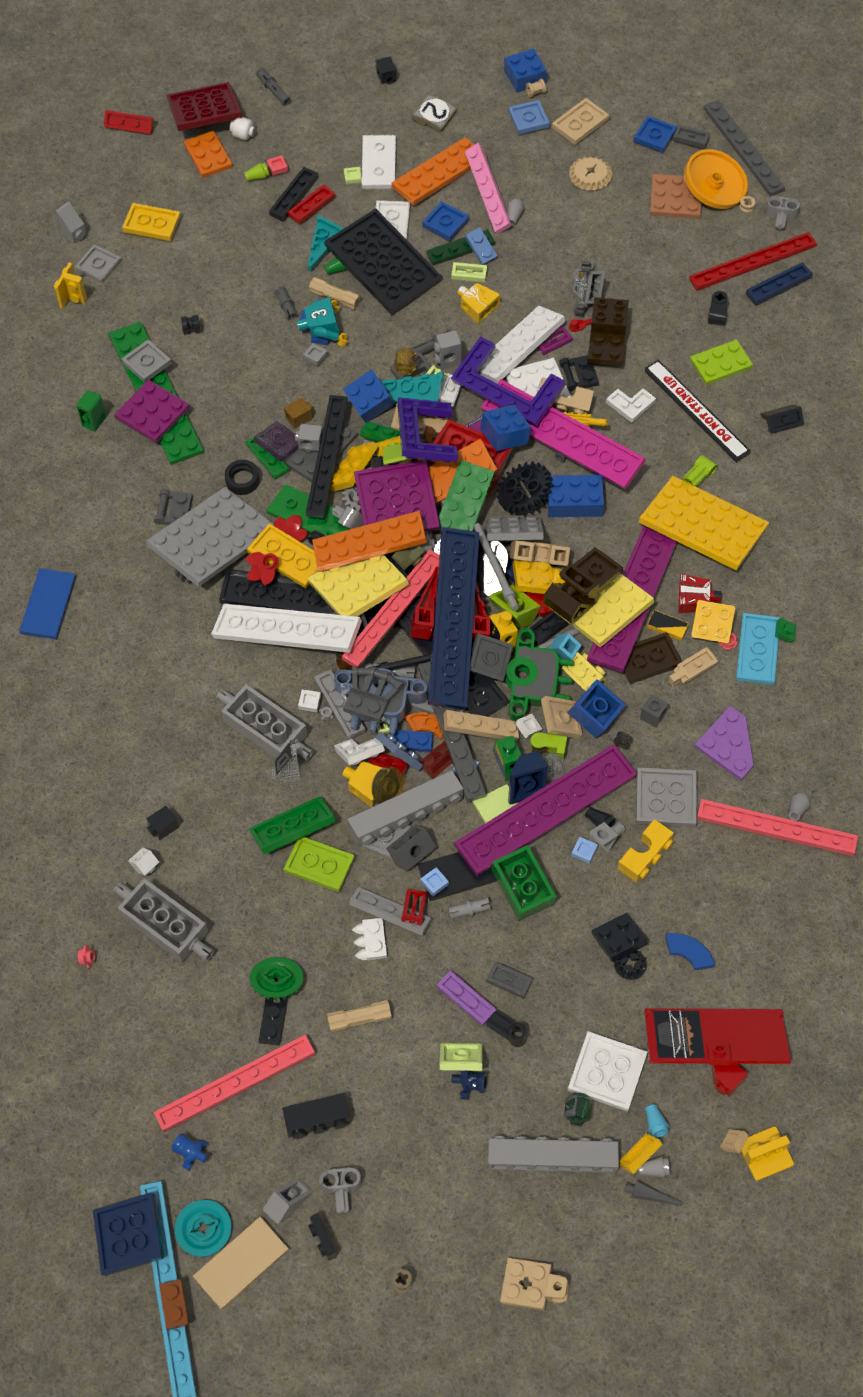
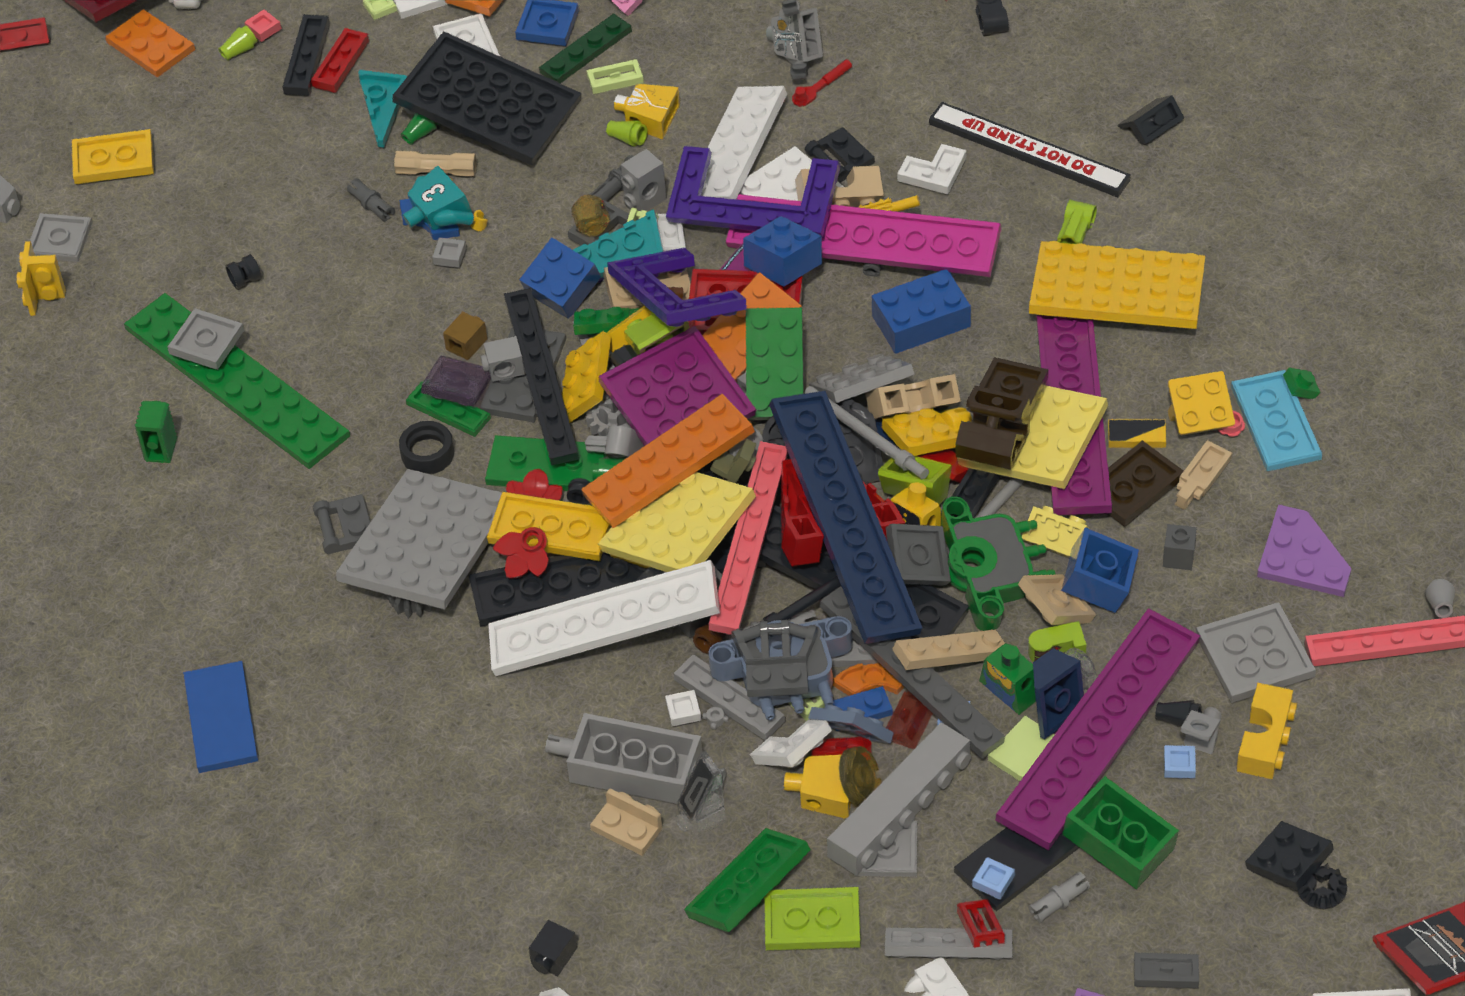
camera: 20 degrees left, 10 degrees down
(152, 411) = (248, 403): magenta plate -> none
(243, 761) = (627, 822): none -> tan bracket
(401, 848) = (936, 846): dark grey brick -> none
(458, 312) = (630, 132): none -> lime cone
(480, 246) = (616, 36): medium blue plate -> none
(528, 726) = (1014, 629): white plate -> none
(536, 481) = (857, 306): black gear -> none
(555, 343) = (786, 126): magenta tile -> none
(565, 646) = (1014, 502): medium azure brick -> none
(608, 331) = (855, 86): dark brown piece -> none
(623, 740) = (1156, 600): clear smoke bush -> none
(690, 950) = (1395, 837): blue tile -> none
(694, 589) = (1149, 377): red torso -> none
(721, 362) = (1029, 78): lime plate -> none

